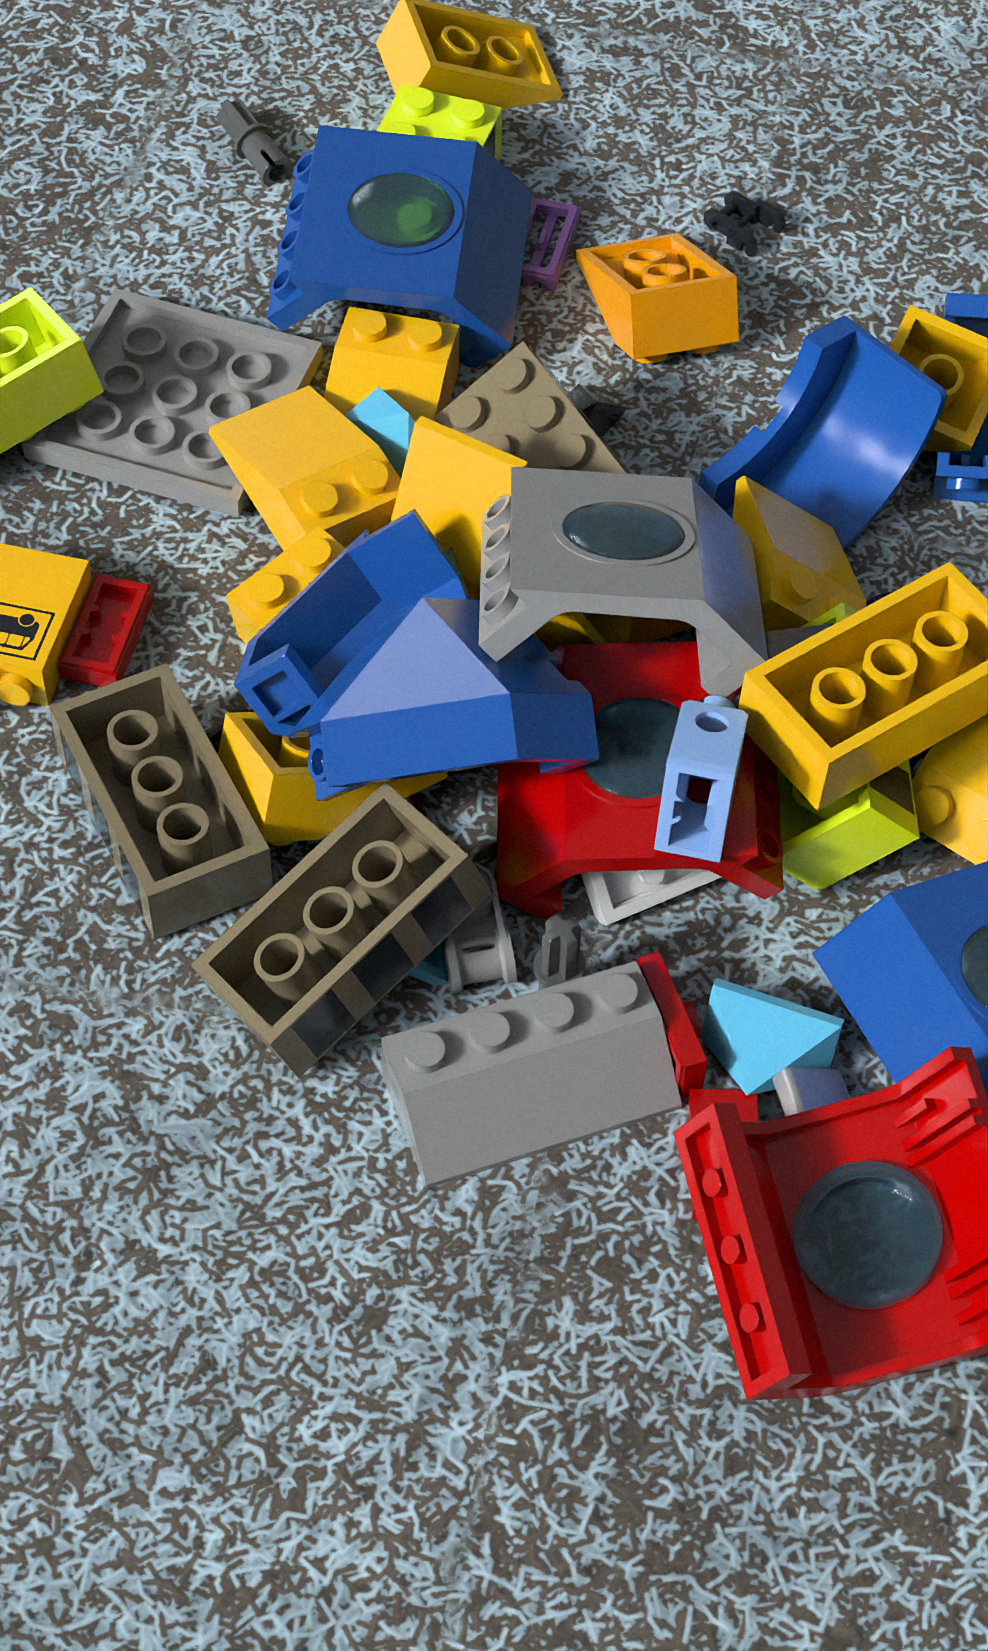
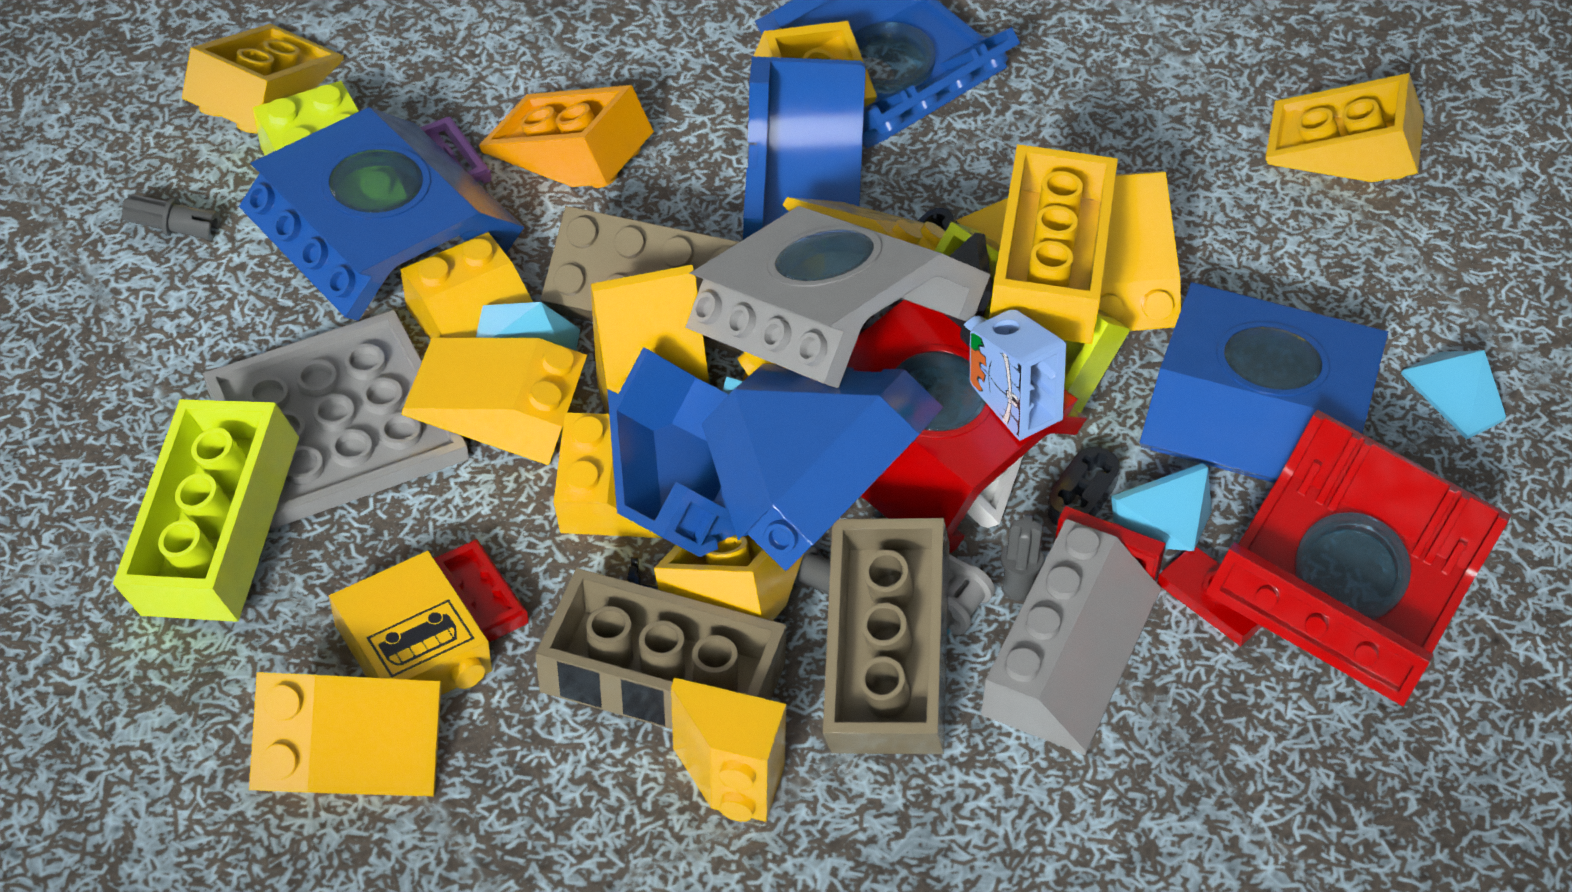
camera: 45 degrees left, 5 degrees down
(109, 919) = (730, 747): none -> yellow slope
(725, 956) = (1074, 482): none -> black beam
(750, 212) = (559, 68): black piece -> none
(808, 1088) = (1226, 522): flat silver piece -> none

